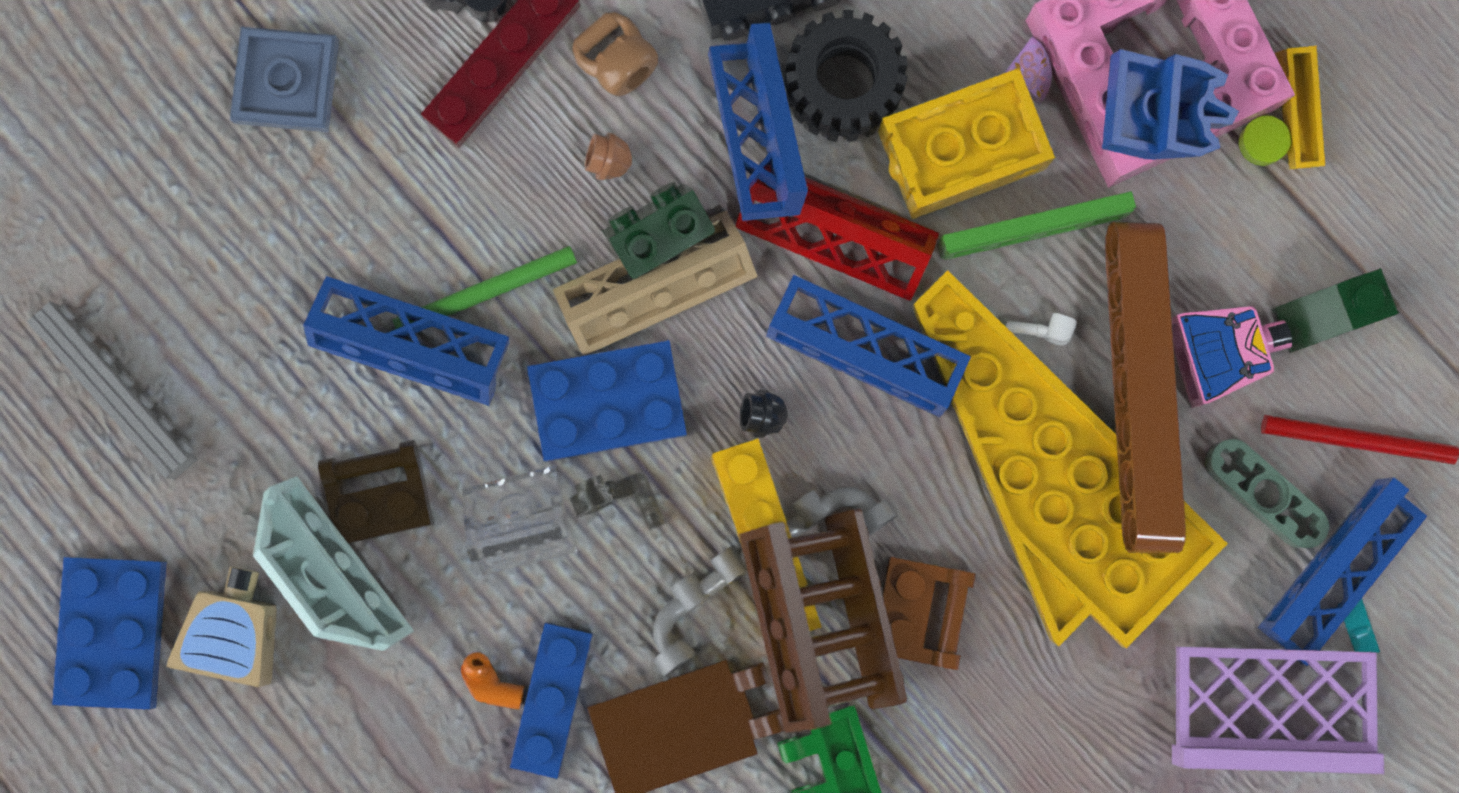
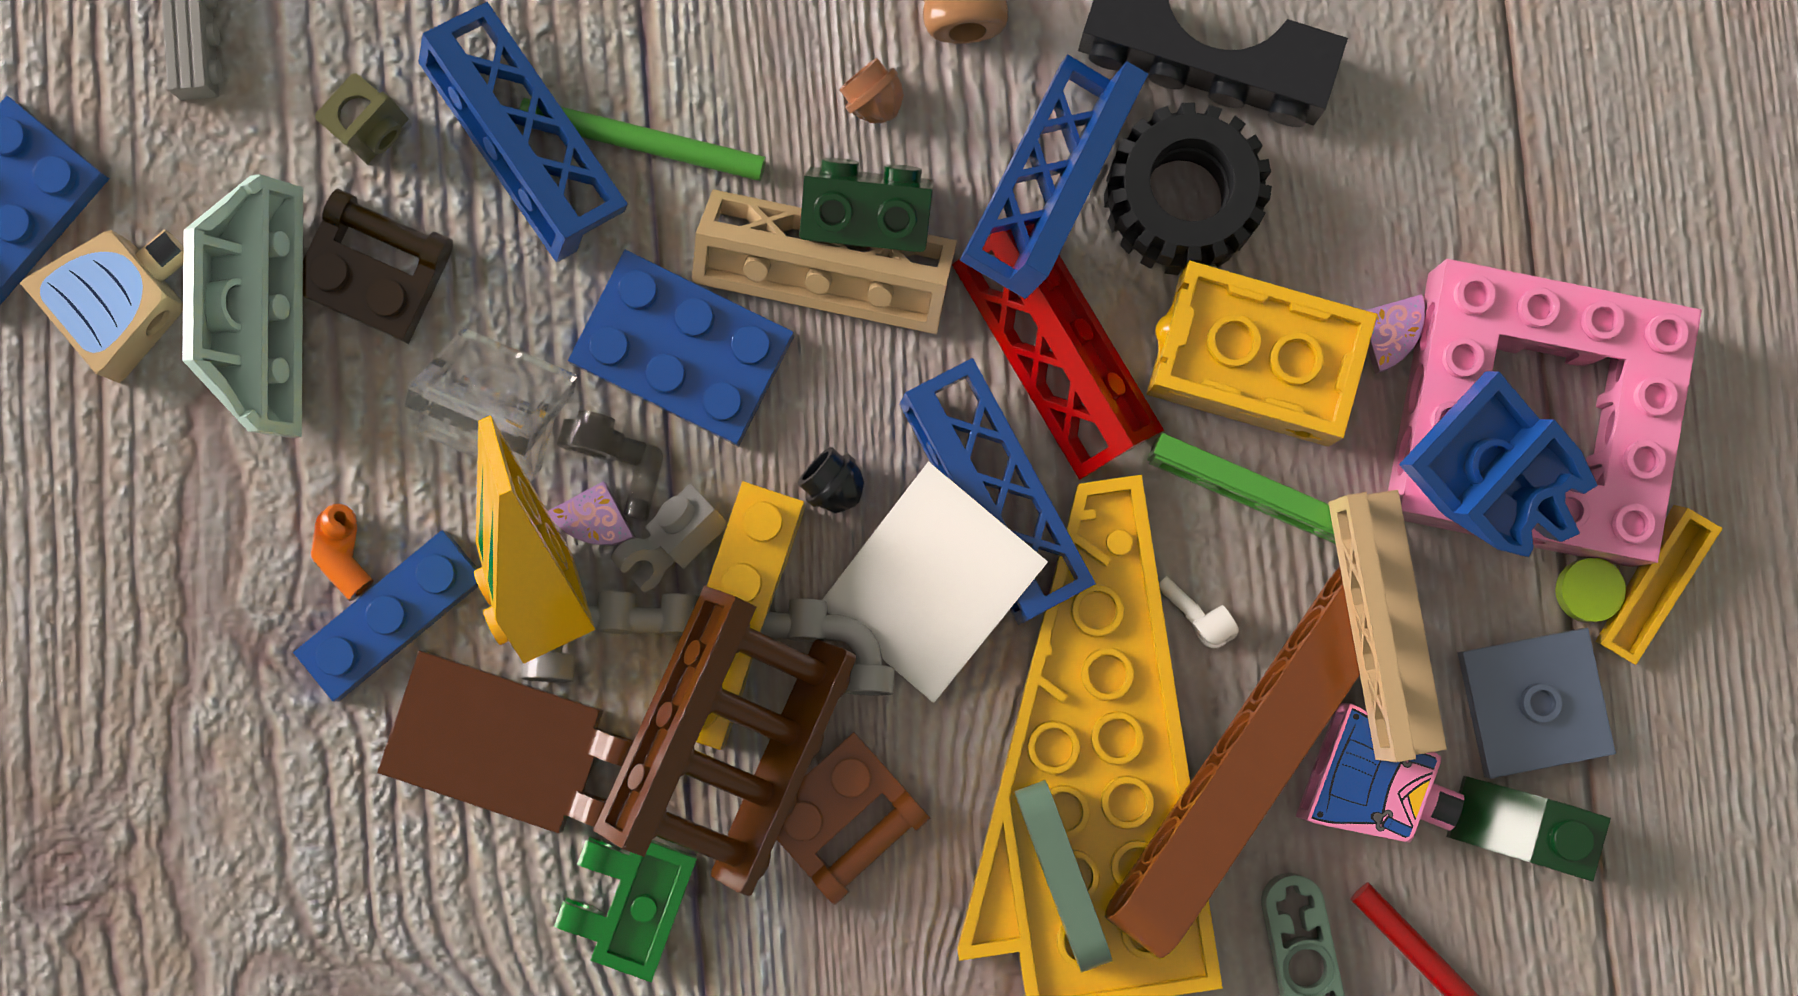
camera: 40 degrees right, 0 degrees up
(316, 406) = (373, 129): none -> olive bracket
(612, 602) = (523, 557): none -> yellow slope
(632, 546) = (593, 517): none -> lavender tile
(692, 515) = (677, 533): none -> light grey plate
(871, 428) = (934, 581): none -> white sticker
(1084, 547) = (1063, 876): none -> sand green beam
(1165, 252) = (1387, 625): none -> tan fence
(1283, 232) = (1536, 703): none -> sand blue plate

